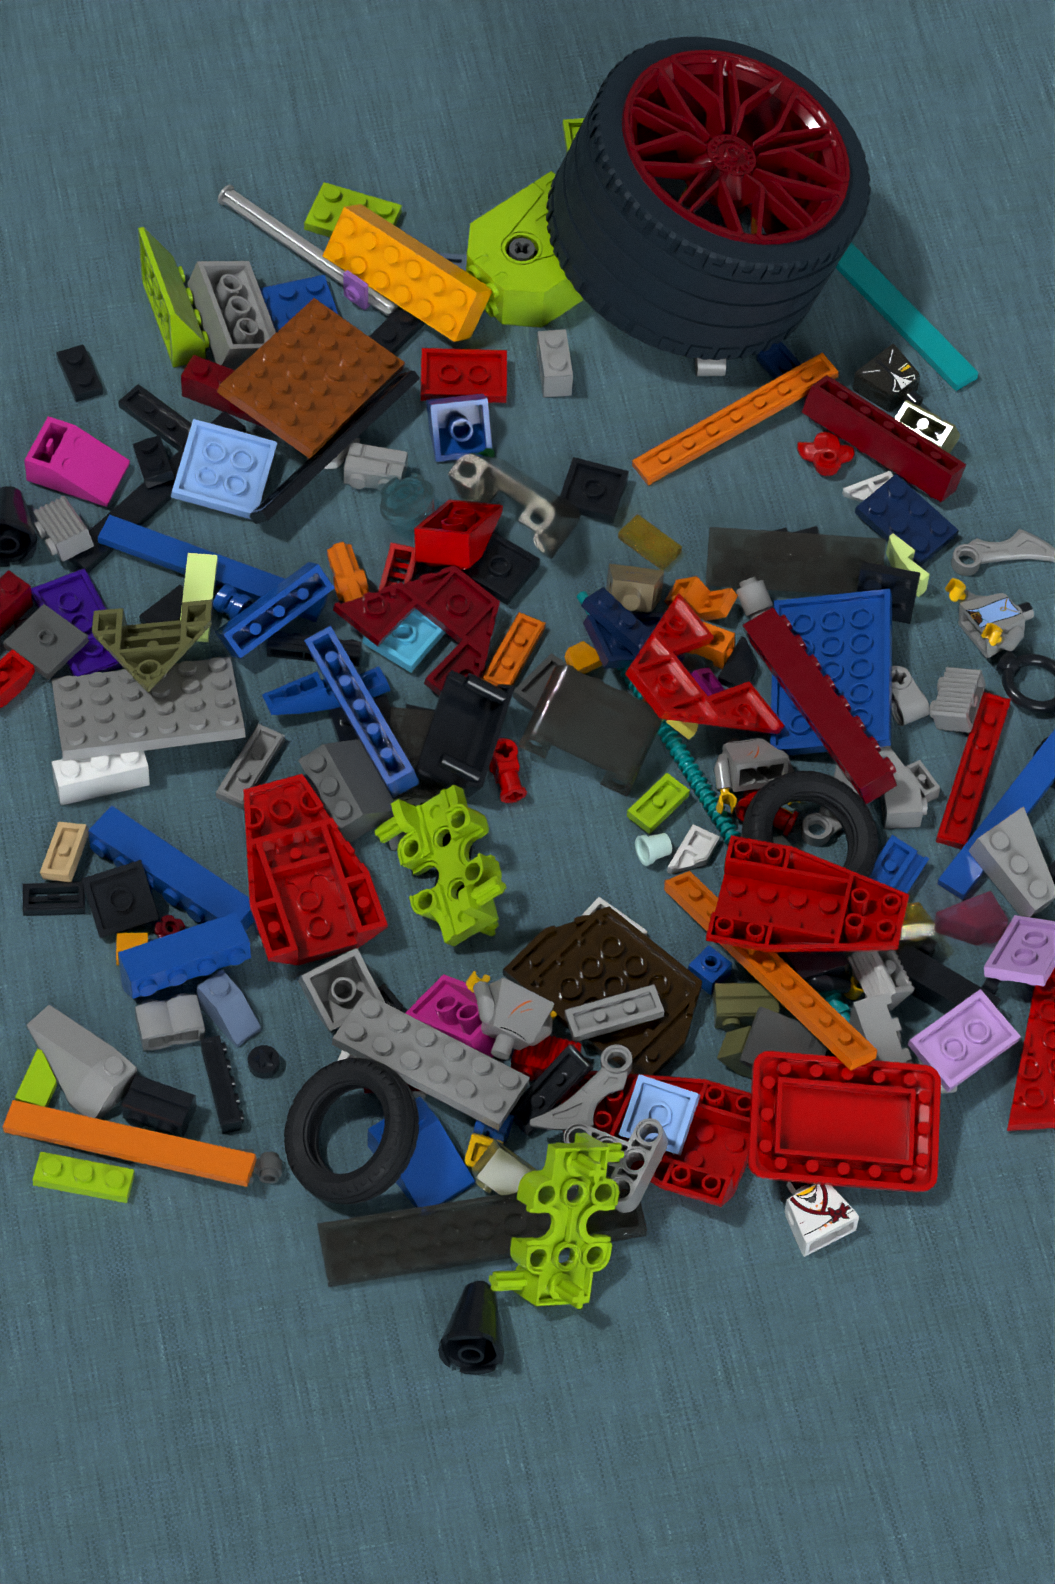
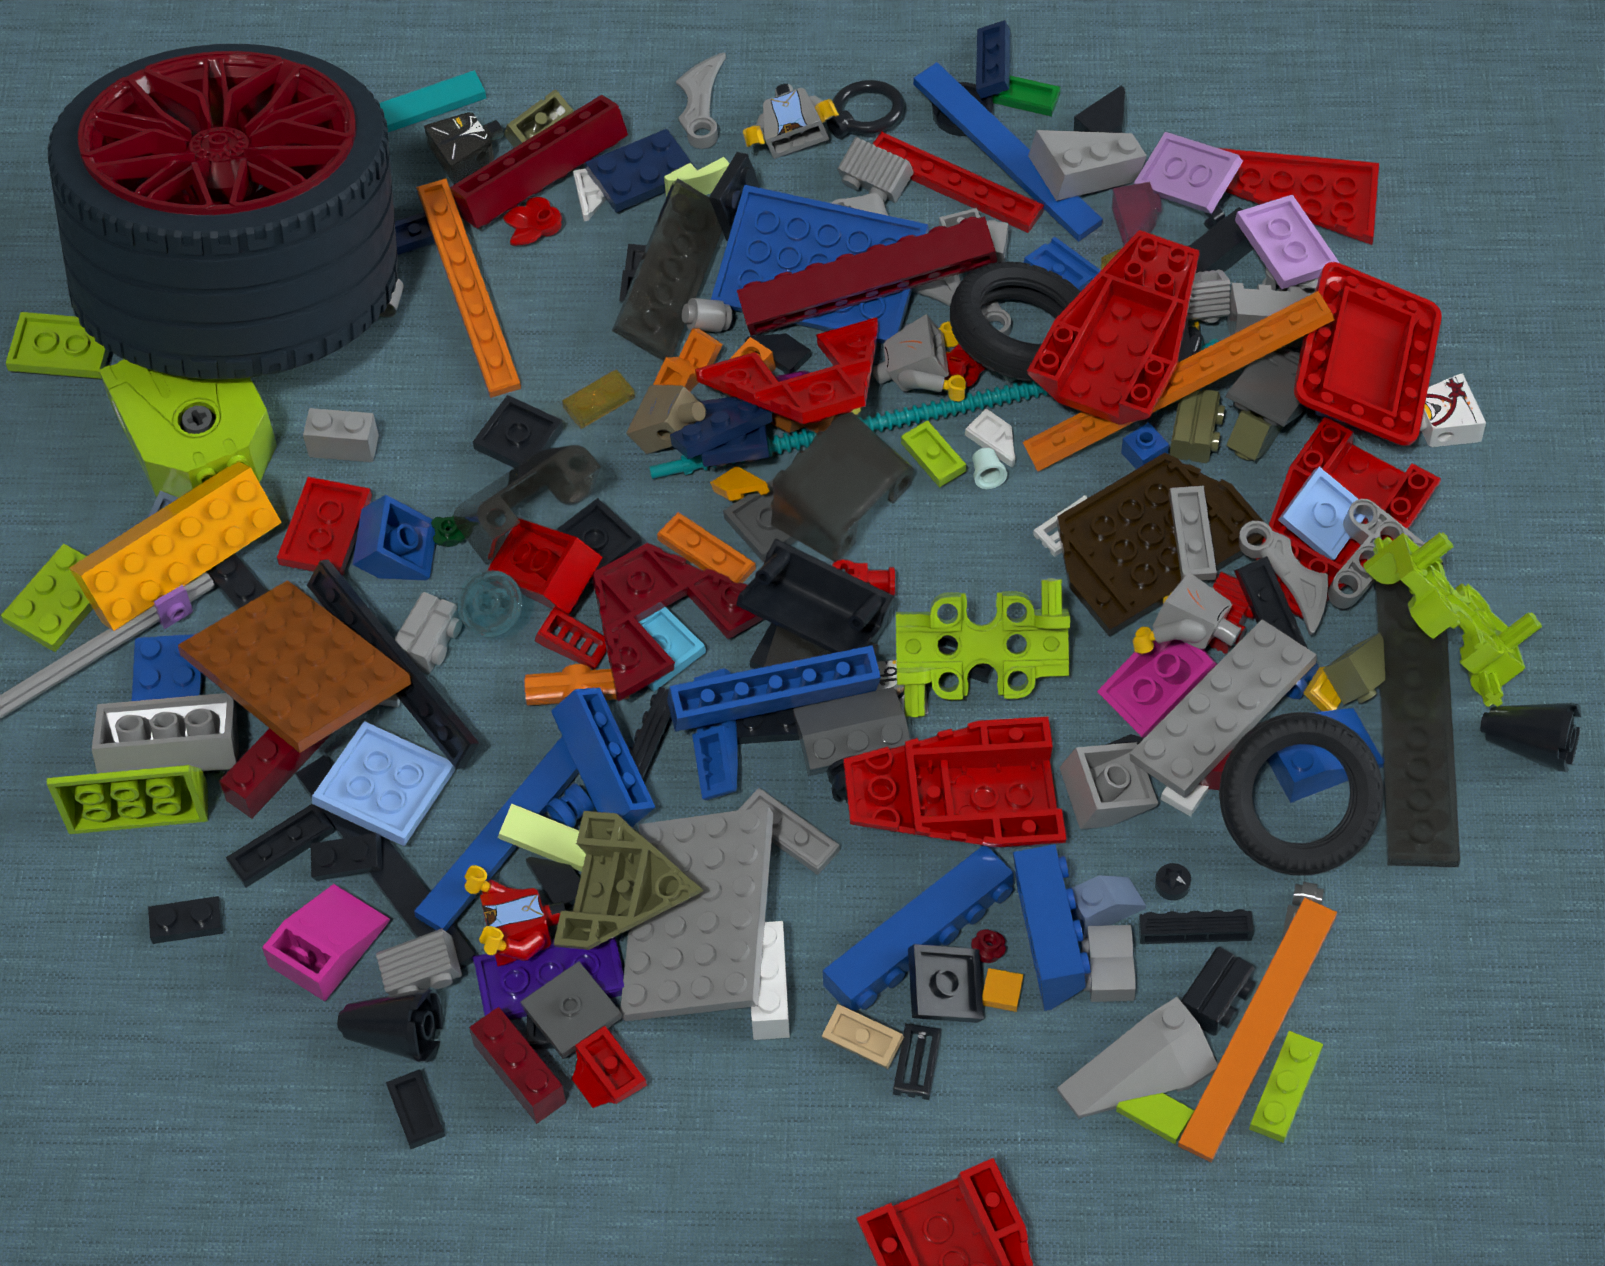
camera: 70 degrees left, 0 degrees up
(113, 582) = (513, 918): none -> torso

